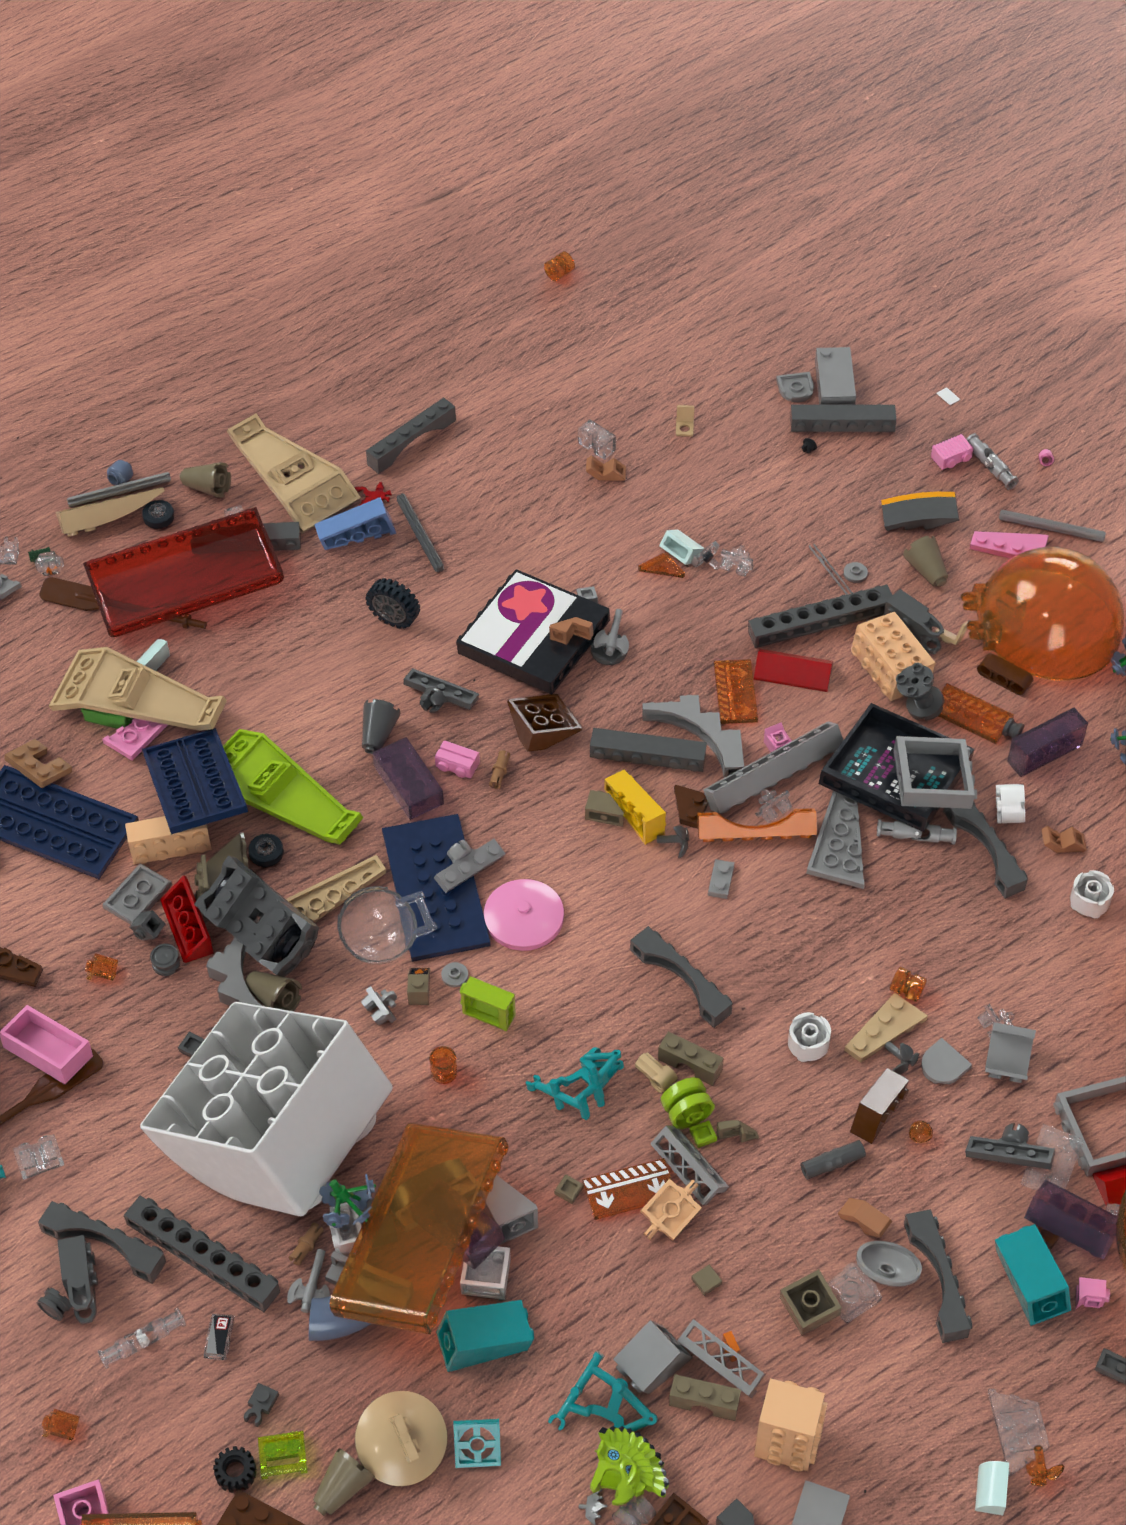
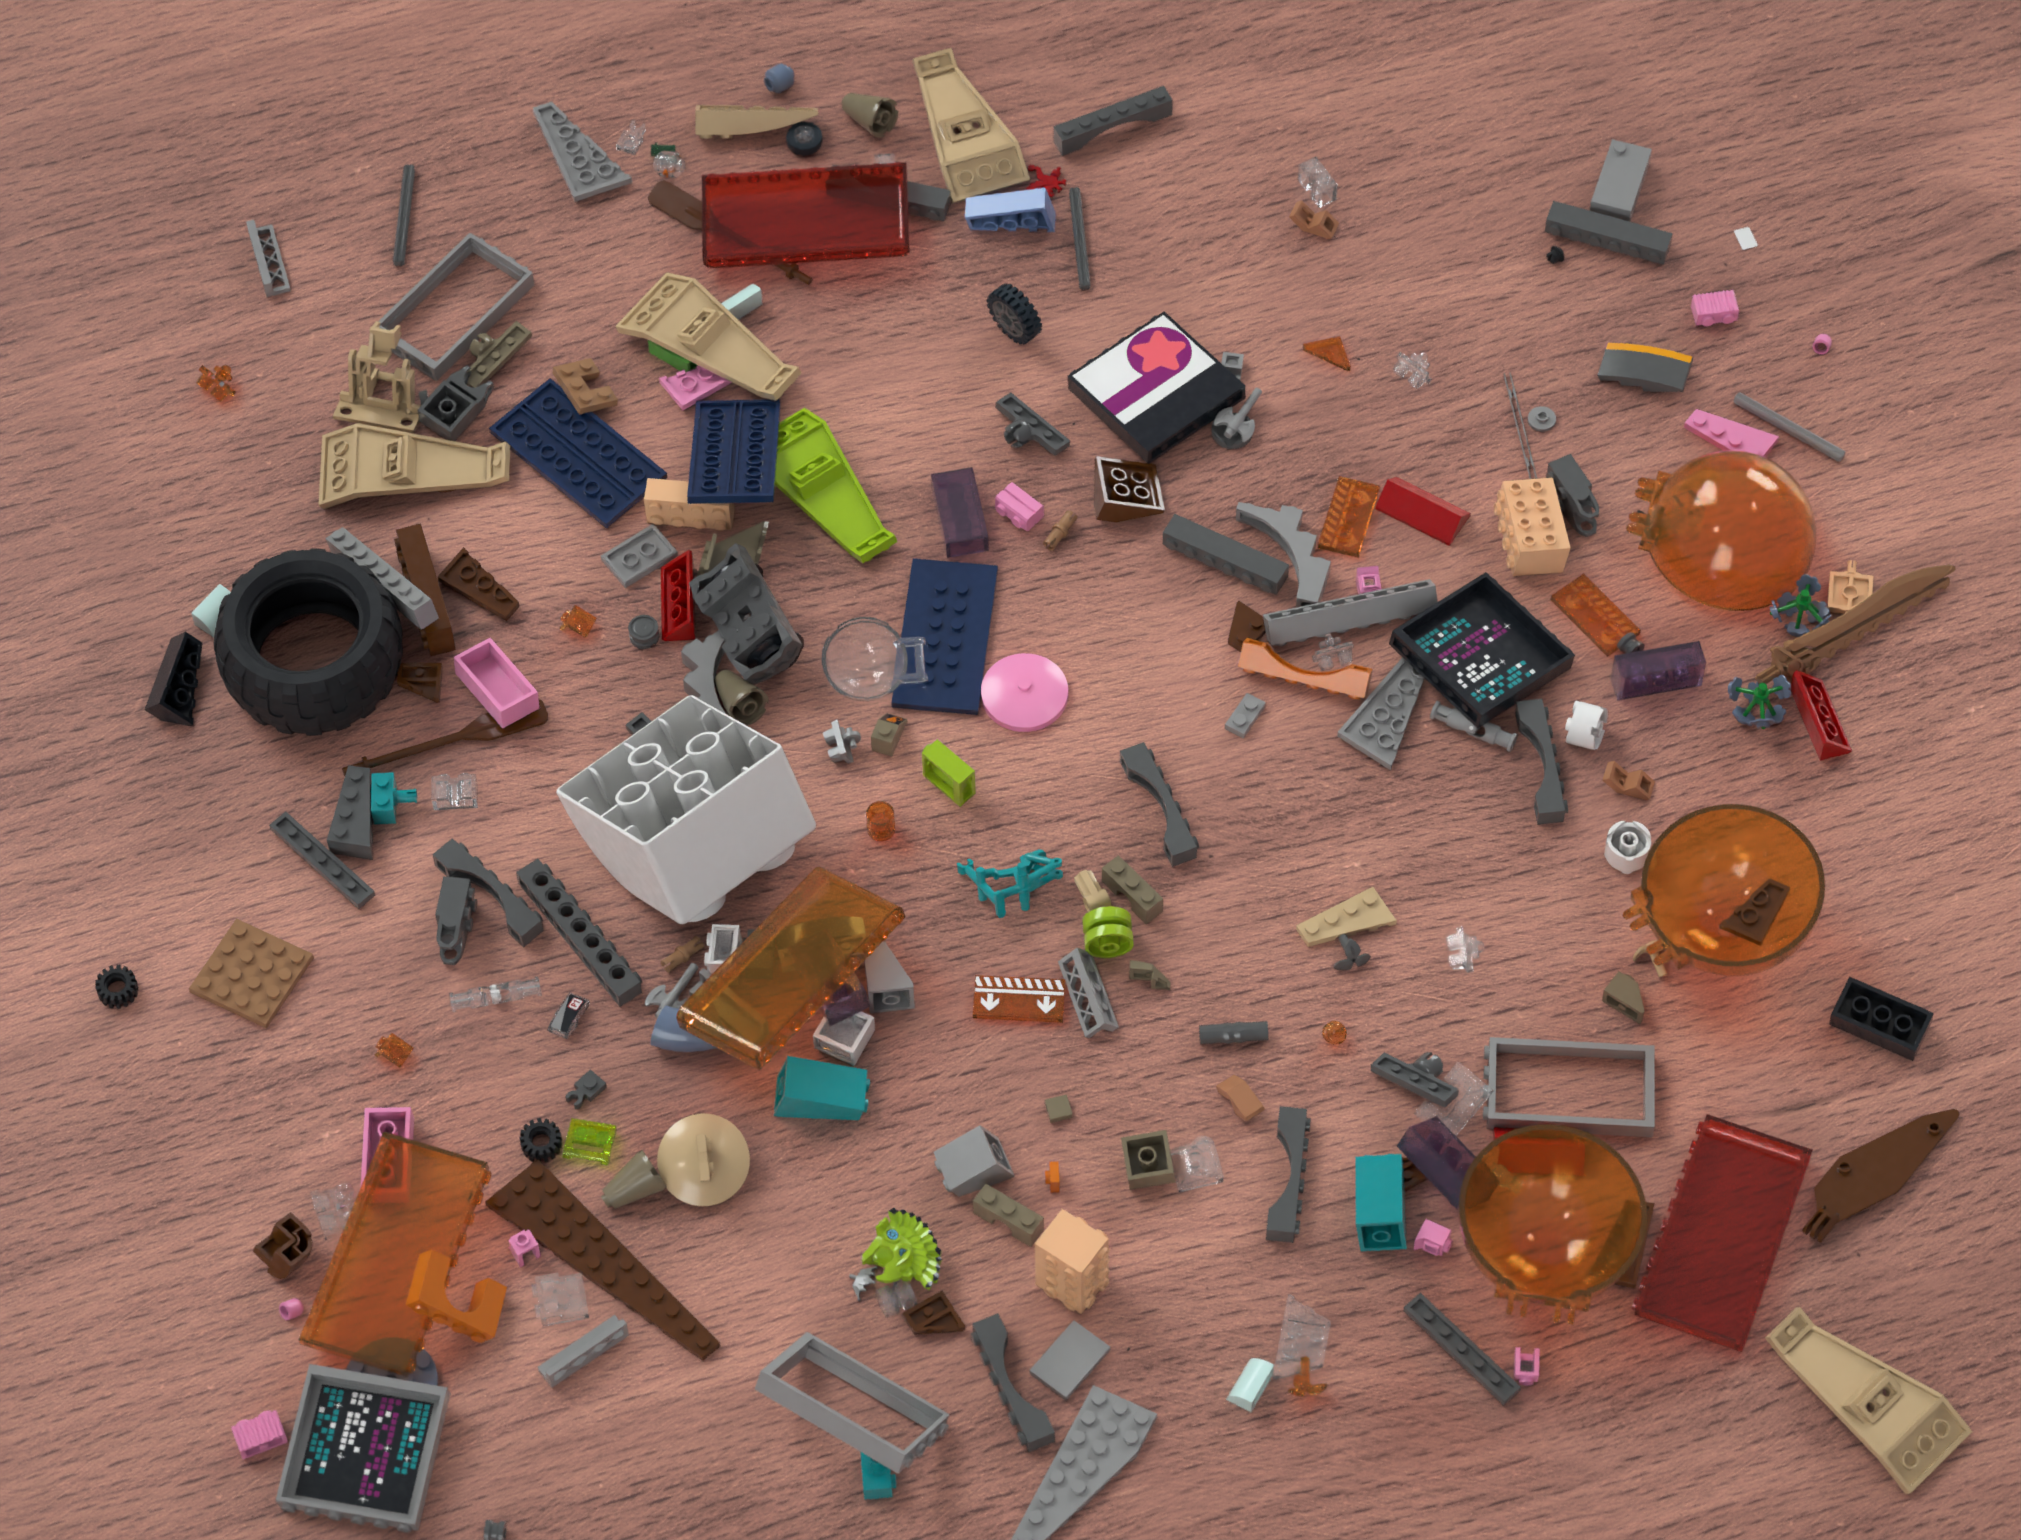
camera: 20 degrees right, 5 degrees up
(54, 1304) = (423, 936): dark grey wheel -> none
(119, 489) = (773, 97): light grey axle -> none
(147, 925) = (636, 591): dark grey brick -> none
(271, 855) = (791, 552): black wheel -> none
(332, 892) = (825, 614): tan wing -> none
(356, 1197) = (720, 913): sand blue plant -> none
(378, 722) = (949, 444): dark grey cone -> none
(454, 974) = (929, 732): light grey piece -> none
(464, 1461) = (792, 1175): teal piece -> none
(467, 863) = (985, 621): light grey plate -> none
(564, 630) = (1186, 396): nougat slope -> none
(569, 1189) = (959, 981): dark tan tile -> none
(603, 809) = (1150, 604): dark tan slope -> none
(620, 1390) = (928, 1182): teal piece -> none
(638, 807) = (1186, 612): yellow wedge -> none
(671, 1209) = (1049, 1030): light nougat plate -> none
(680, 546) = (1359, 334): light aqua brick -> none
(681, 837) = (1218, 657): dark grey plant -> none
(685, 417) = (1428, 182): tan bracket -> none
(703, 1134) = (1115, 968): lime tile -> none
(706, 555) = (1383, 353): piece -> none
(716, 1365) = (1029, 1184): light grey fence -> none
(796, 386) = (1574, 179): light grey tile -> none
(809, 1037) = (1262, 904): white brick -> none
(818, 616) = (1462, 459): dark grey brick -> none
(878, 1105) = (1303, 993): reddish brown wedge -> none
(888, 1263) = (1241, 1147): light grey dish -> none
(908, 984) = (1392, 884): clear orange wheel -> none
(923, 699) = (1545, 585): dark grey piece -> none
(927, 560) = (1624, 427): dark tan cone -> none
(934, 797) = (1502, 696): light grey window -> none
(943, 1063) = (1391, 973): light grey tile -> none
(949, 637) = (1610, 523): tan bracket -> none
(992, 462) = (1758, 339): light grey piece -> none
(1005, 674) = (1652, 582): reddish brown beam -> none
(1009, 1052) = (1461, 981): light grey panel -> none

